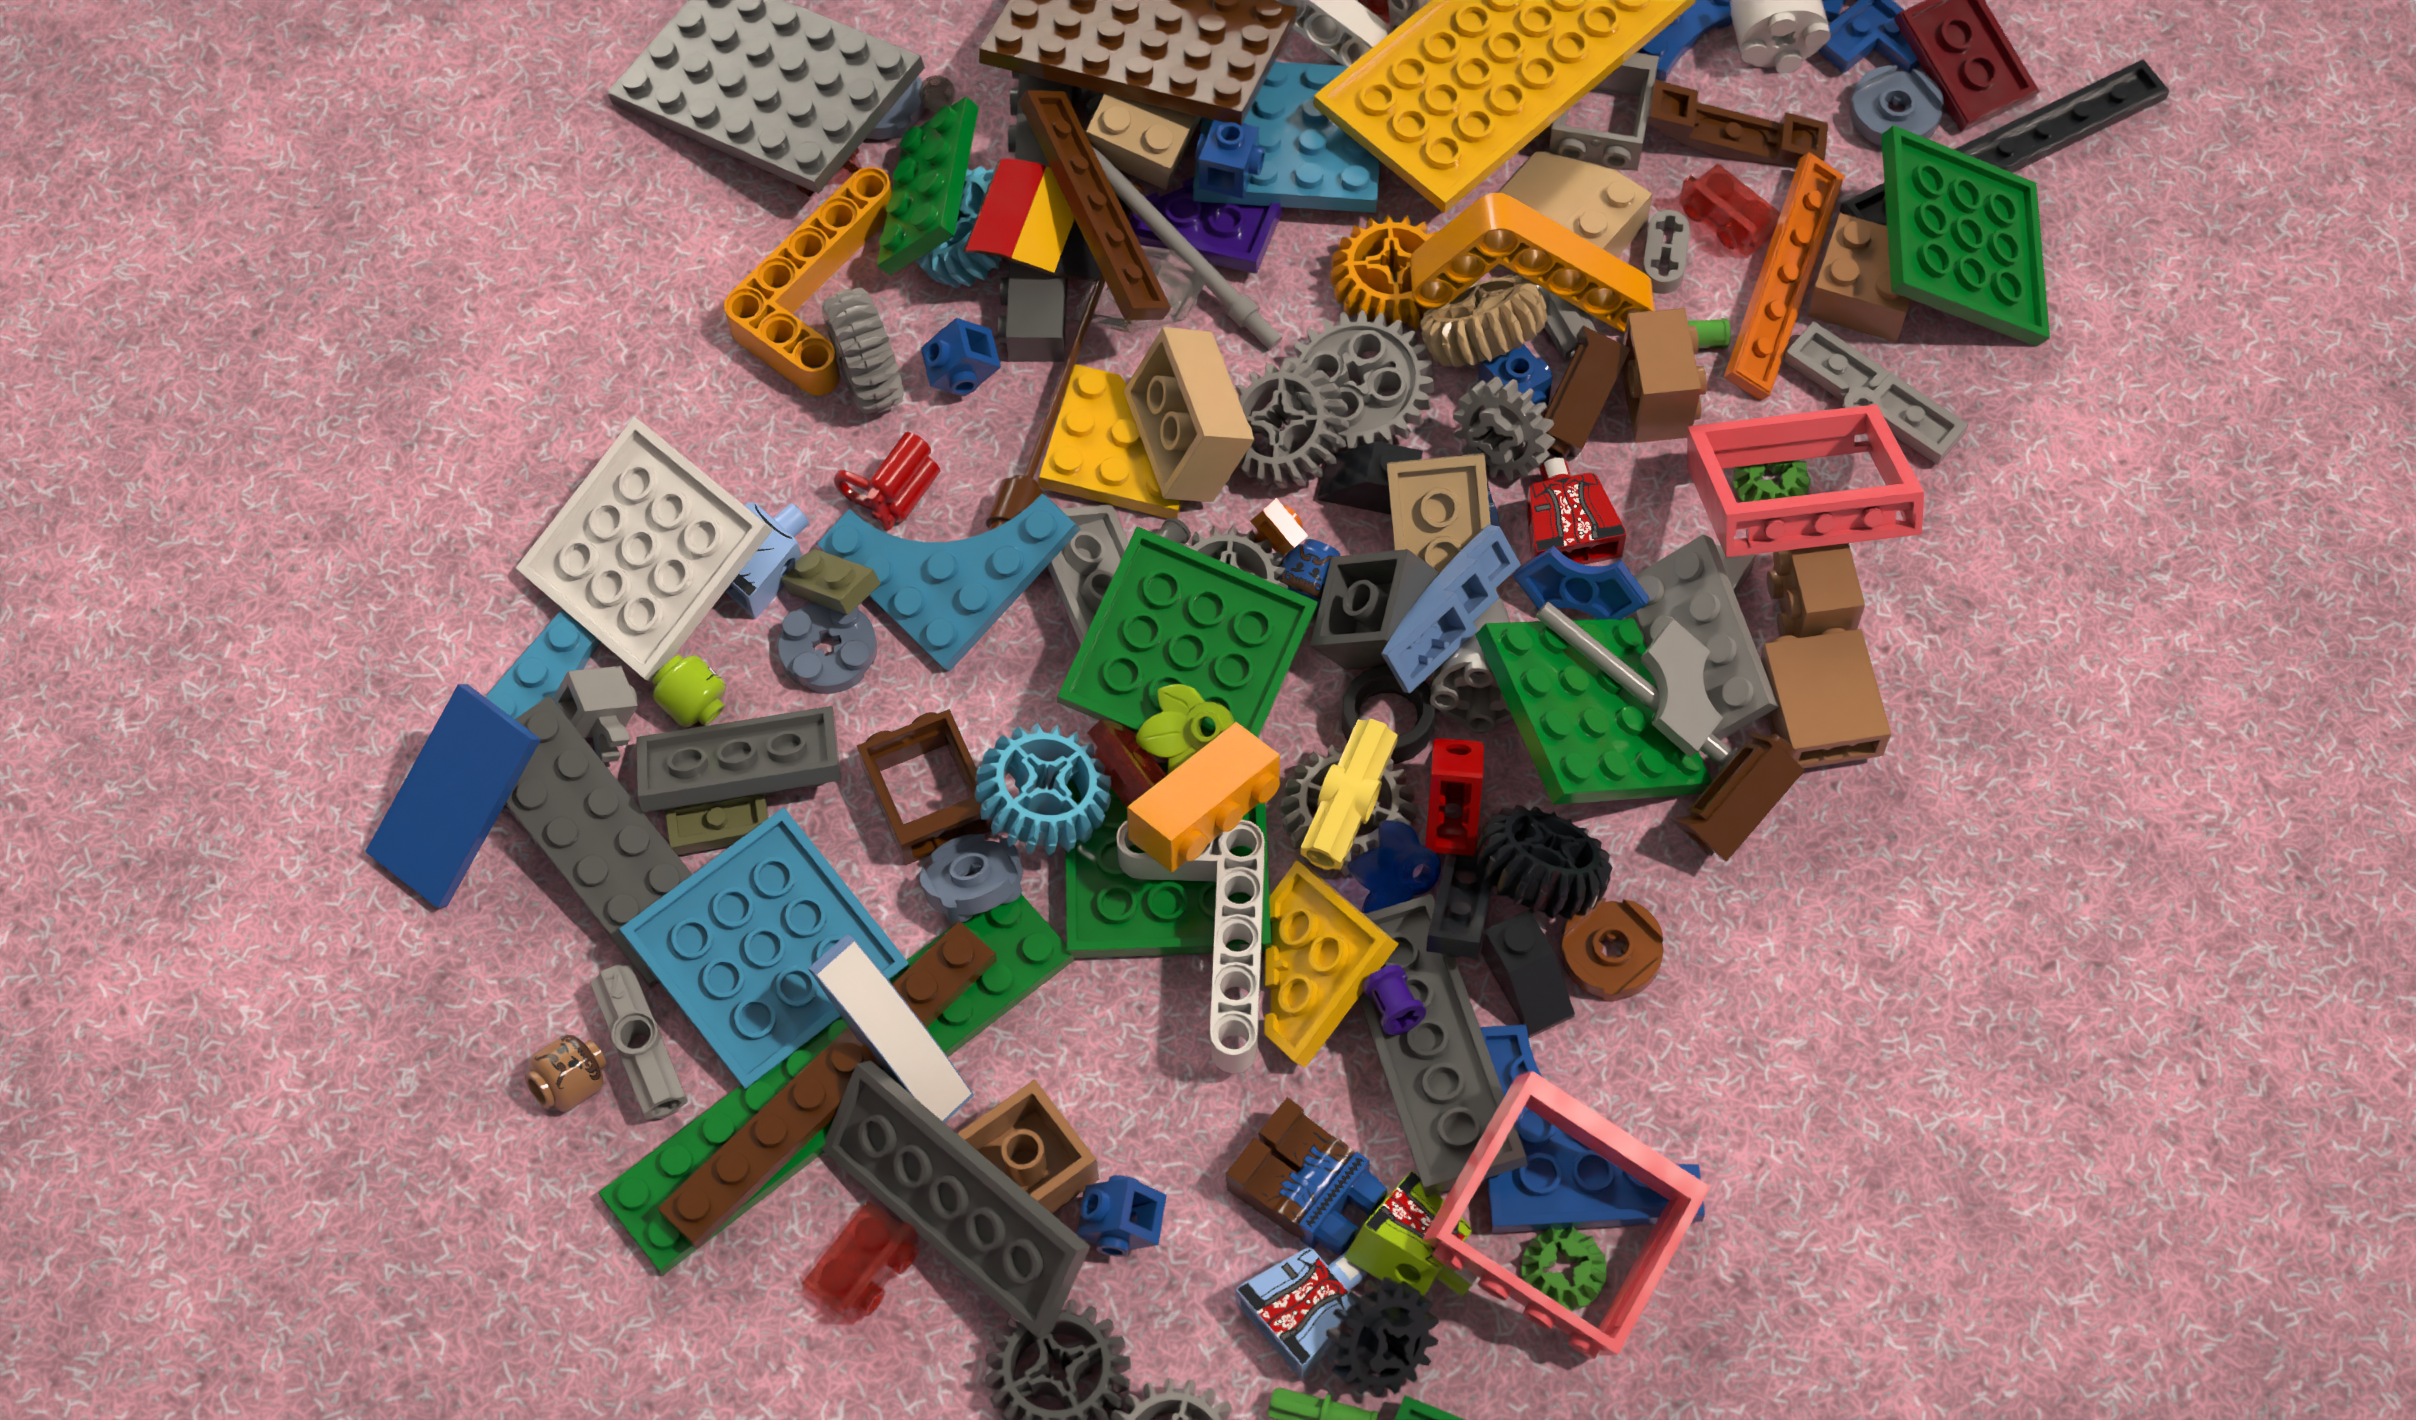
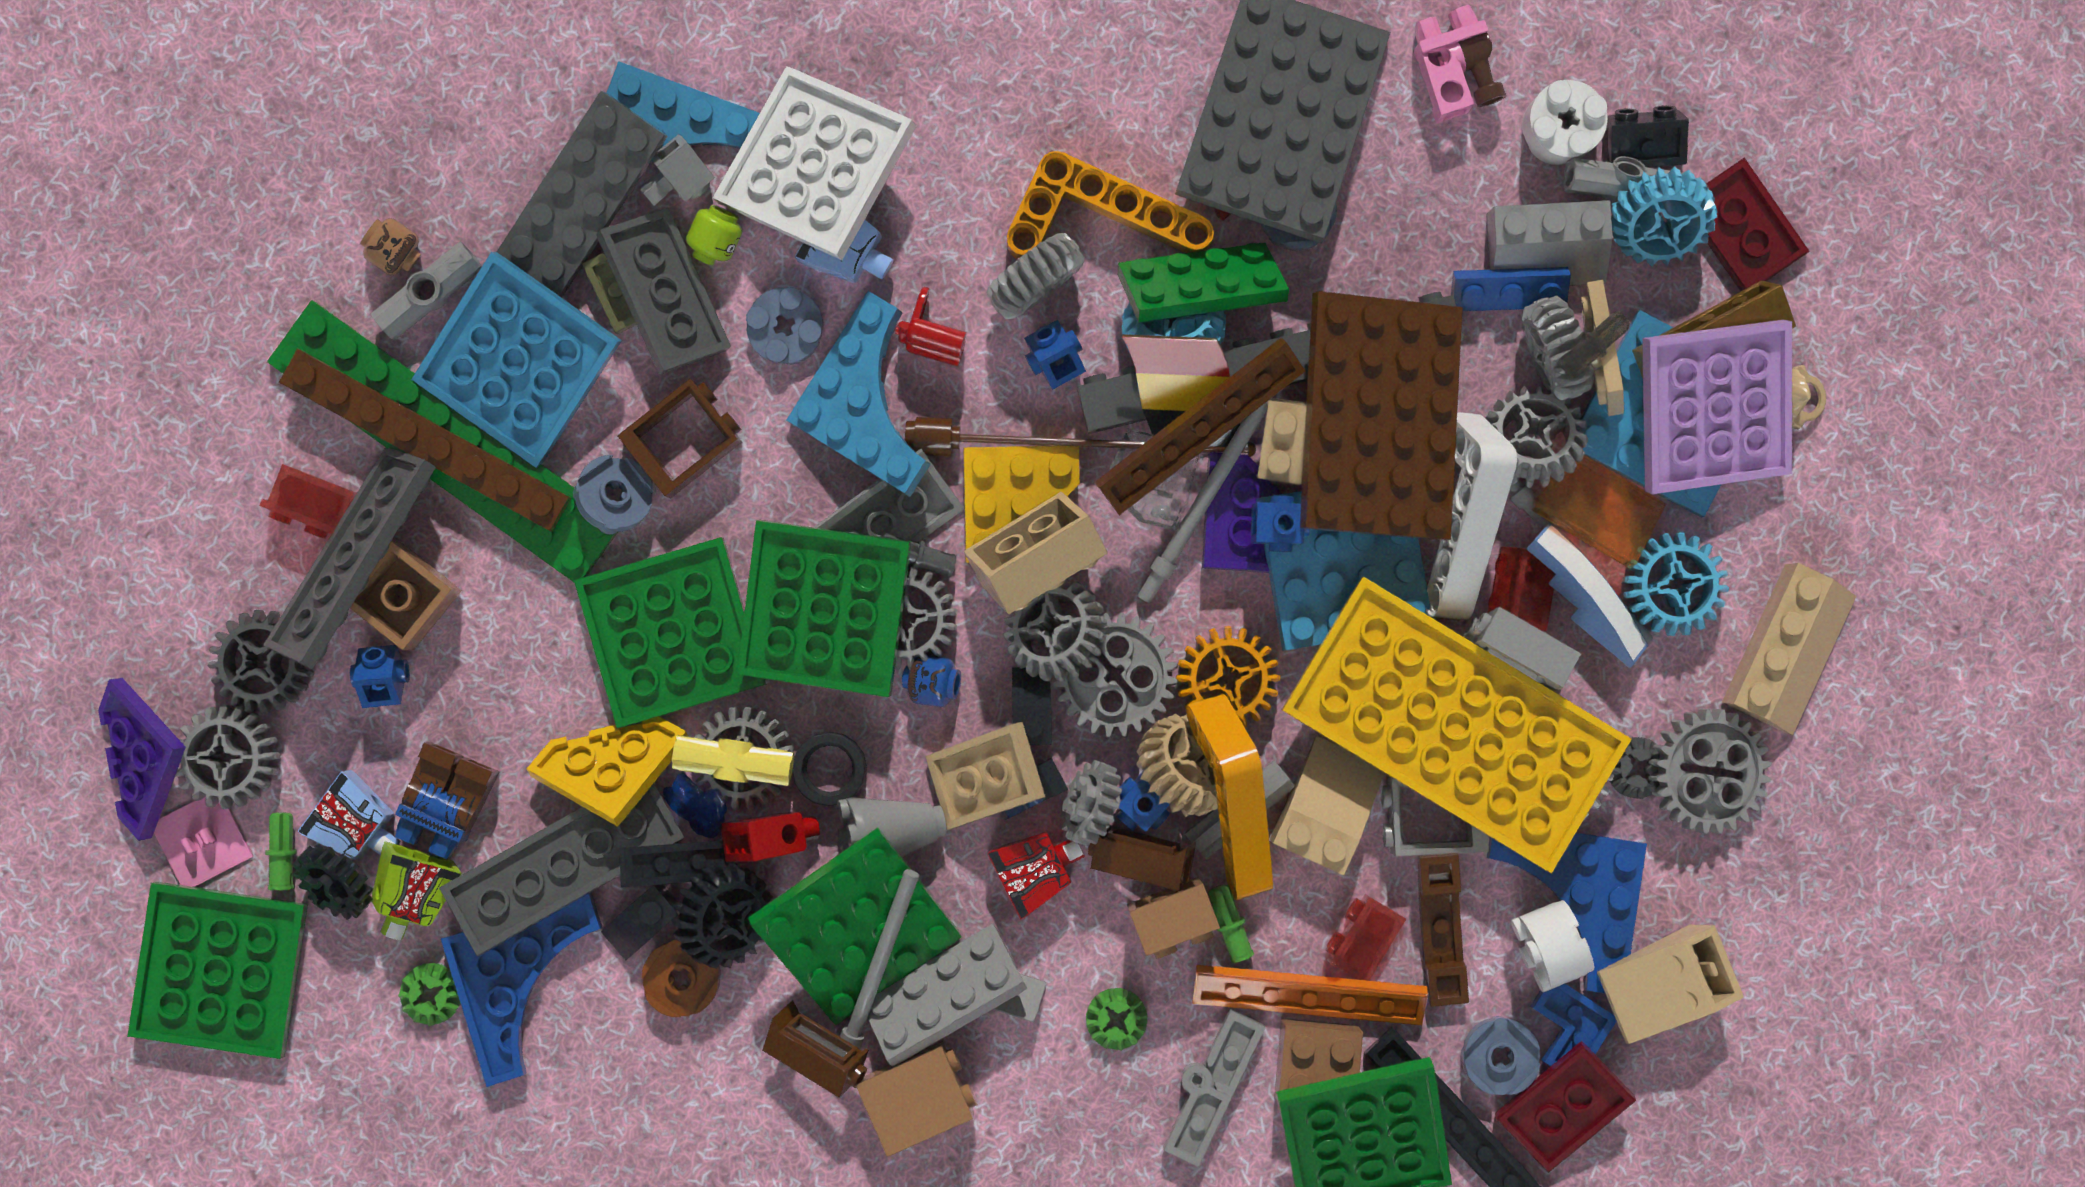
camera: 70 degrees right, 25 degrees up
(452, 795) = (569, 91): blue tile -> none
(830, 581) = (830, 313): olive plate -> none
(889, 1028) = (457, 475): white slope -> none
(936, 92) = (1299, 261): clear smoke axle -> none
(1040, 814) = (698, 539): medium azure gear -> none
(1130, 766) = (711, 595): clear red bracket -> none
(1177, 729) = (749, 621): lime plate -> none
(1204, 797) = (688, 657): light orange brick -> none
(1231, 923) = (616, 695): white beam -> none
(1280, 526) = (958, 648): orange plate -> none
(1365, 604) = (900, 742): dark grey brick -> none
(1394, 1000) = (578, 832): dark purple bush -> none
(1448, 607) = (895, 795): medium blue slope -> none
(1597, 590) = (969, 909): blue tile -> none
(1618, 1147) = (419, 1053): coral window -> none
(1674, 252) = (1310, 883): light grey beam -> none
(1684, 708) = (869, 996): light grey tile -> none
(1811, 518) = (1034, 1073): coral window -> none
(1815, 590) = (1007, 1075): medium nougat brick -> none

